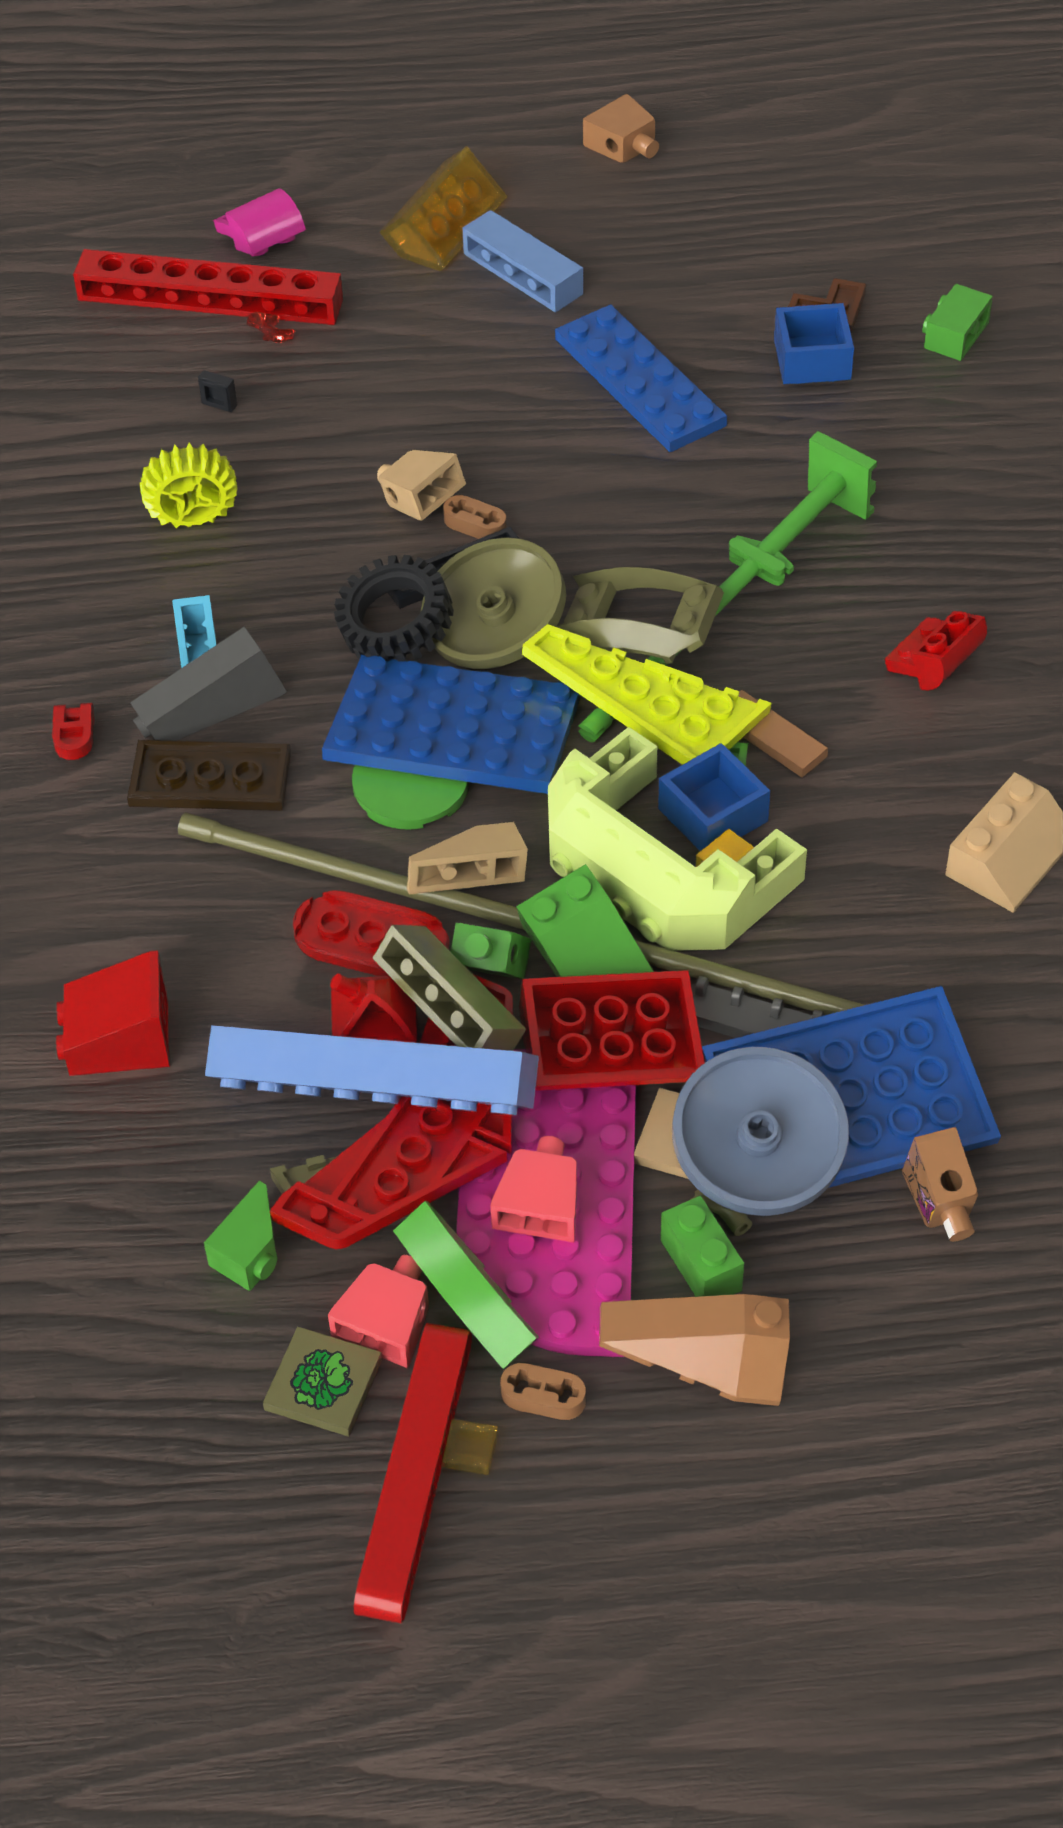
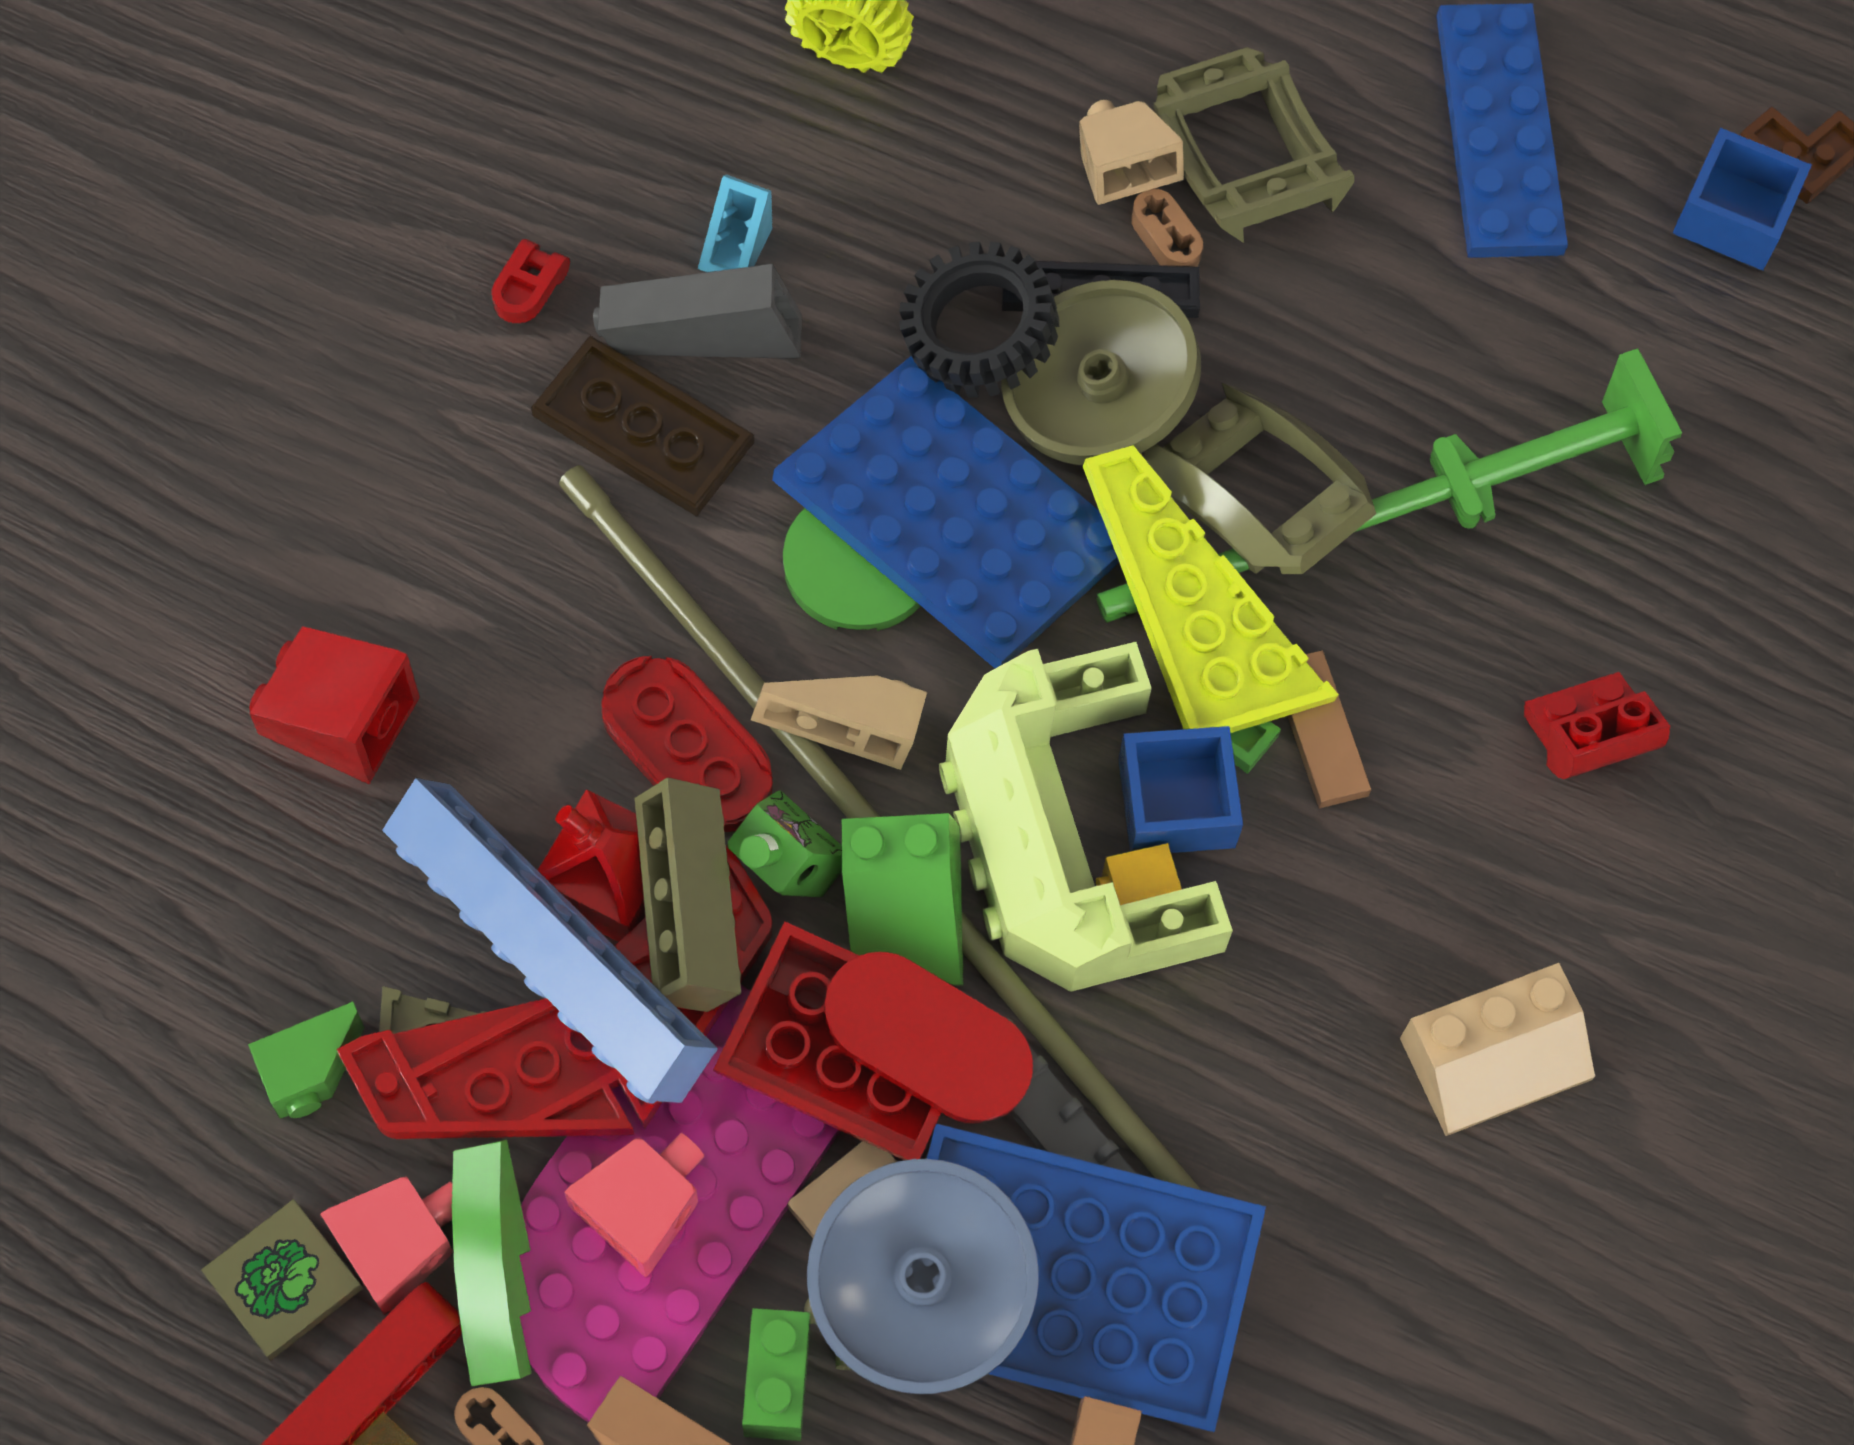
camera: 25 degrees right, 15 degrees up
(538, 442) = (1270, 193): none -> olive wedge
(662, 997) = (928, 1037): none -> red tile

